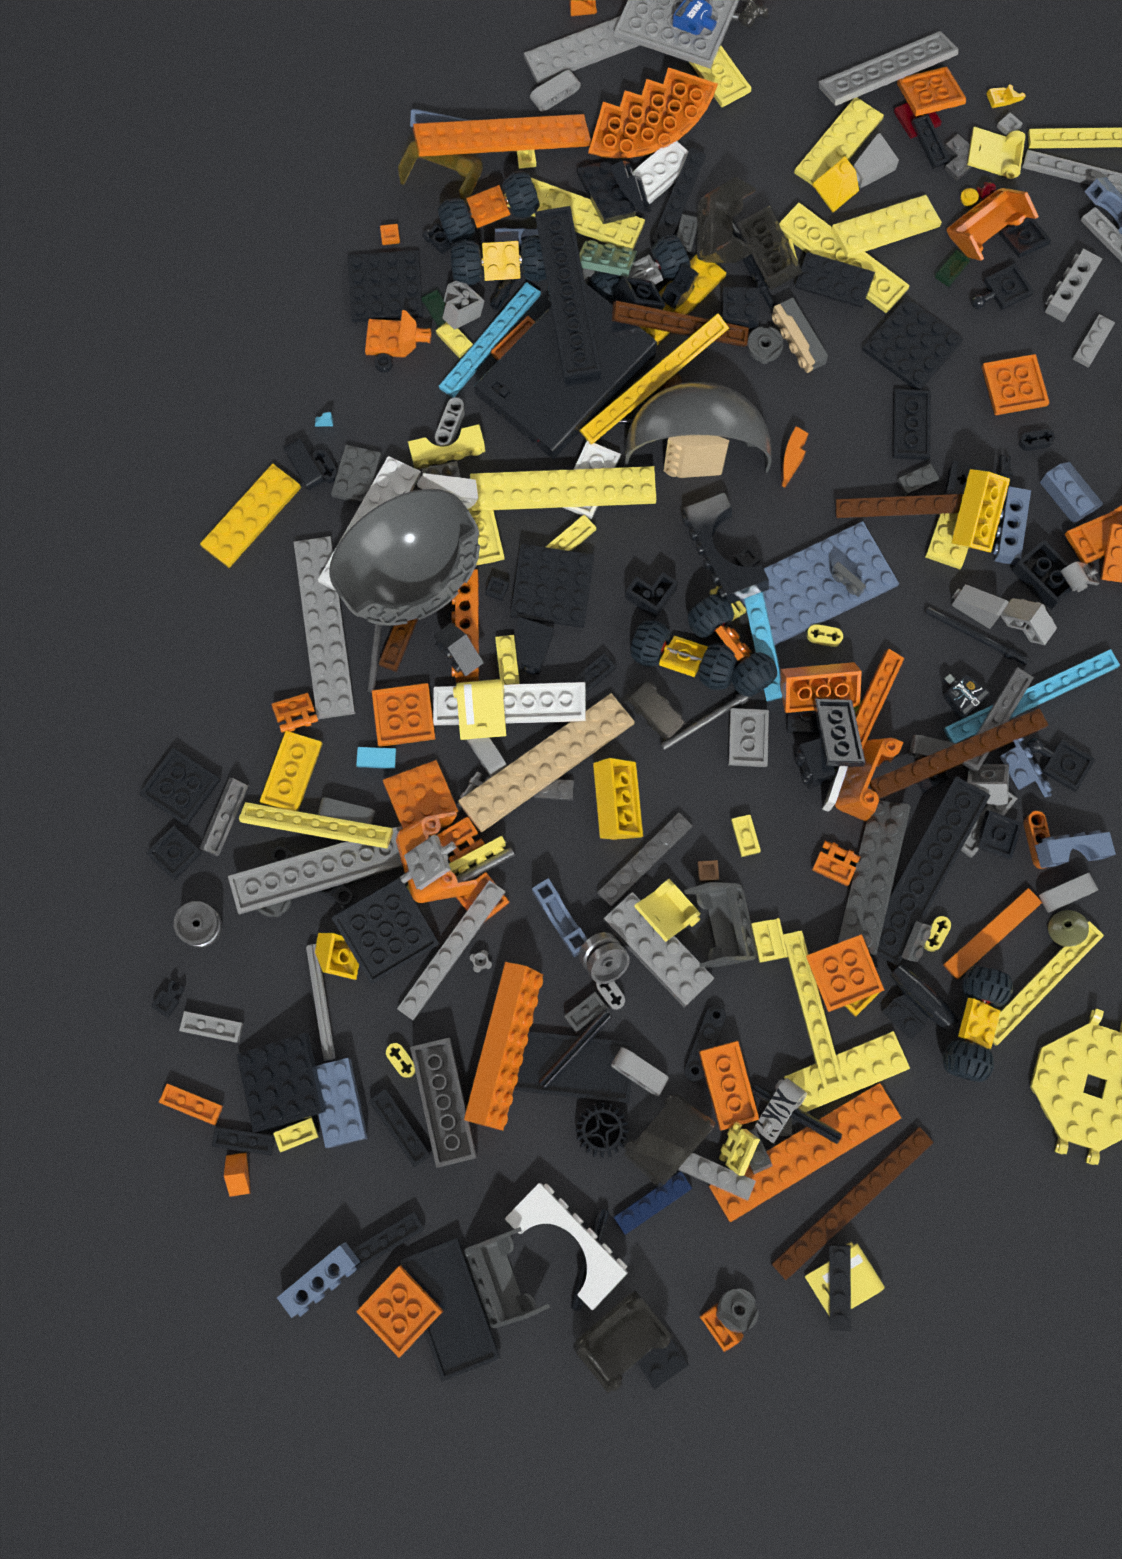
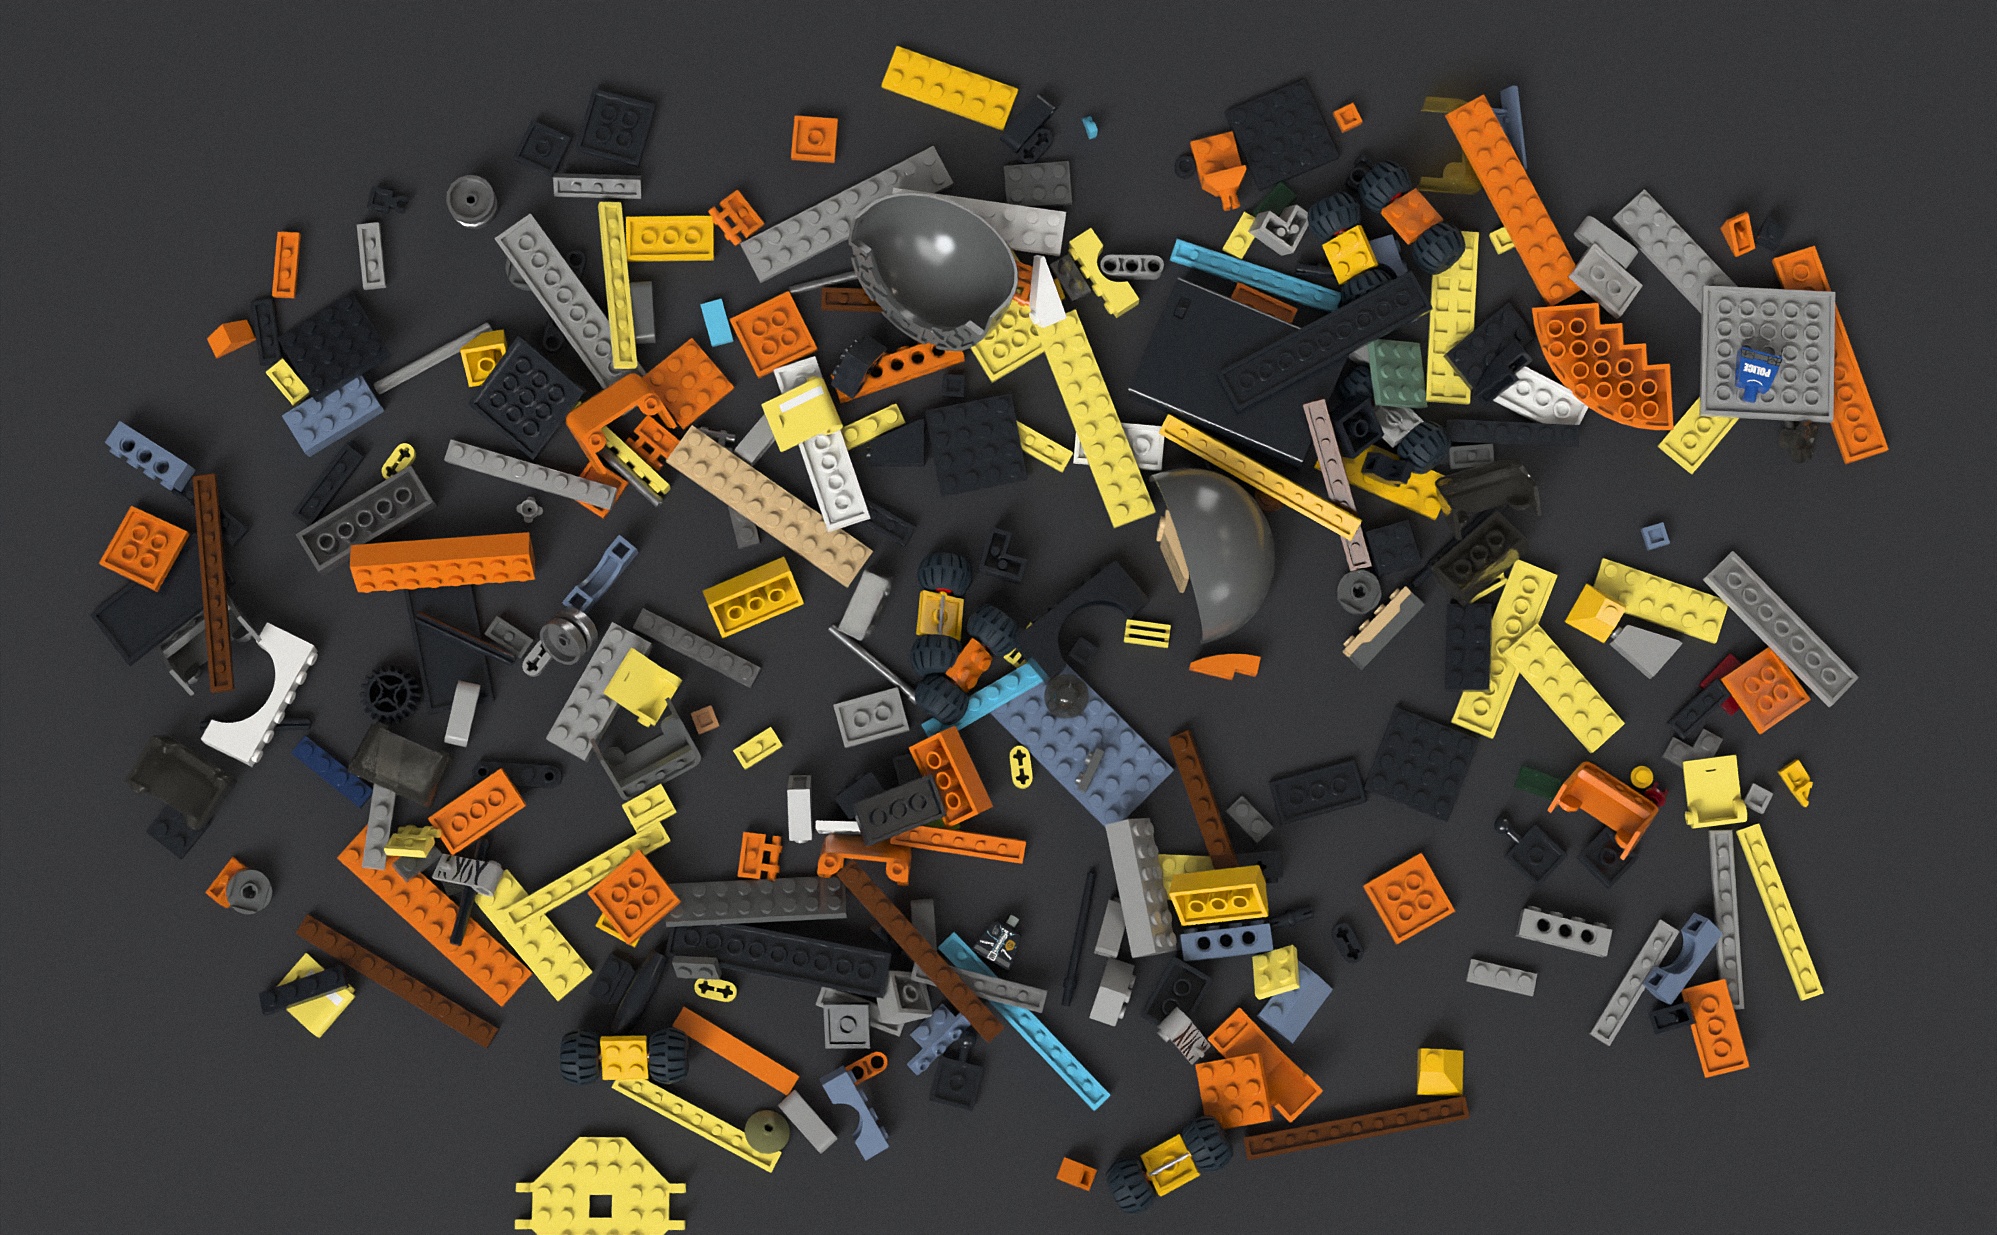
camera: 70 degrees right, 5 degrees up
(252, 631) = (814, 139): none -> orange plate
(427, 862) = (605, 413): light grey plate -> none
(454, 1255) = (213, 583): none -> reddish brown plate
(584, 97) = (1605, 281): none -> light grey plate
(753, 494) = (1127, 639): none -> light yellow tile
(783, 579) = (1066, 696): none -> clear smoke plate
(790, 129) = (1655, 536): none -> sand blue plate
(806, 815) = (800, 808): none -> slope
(954, 570) = (1141, 887): none -> light grey brick
(1049, 493) = (1276, 972): none -> light yellow plate

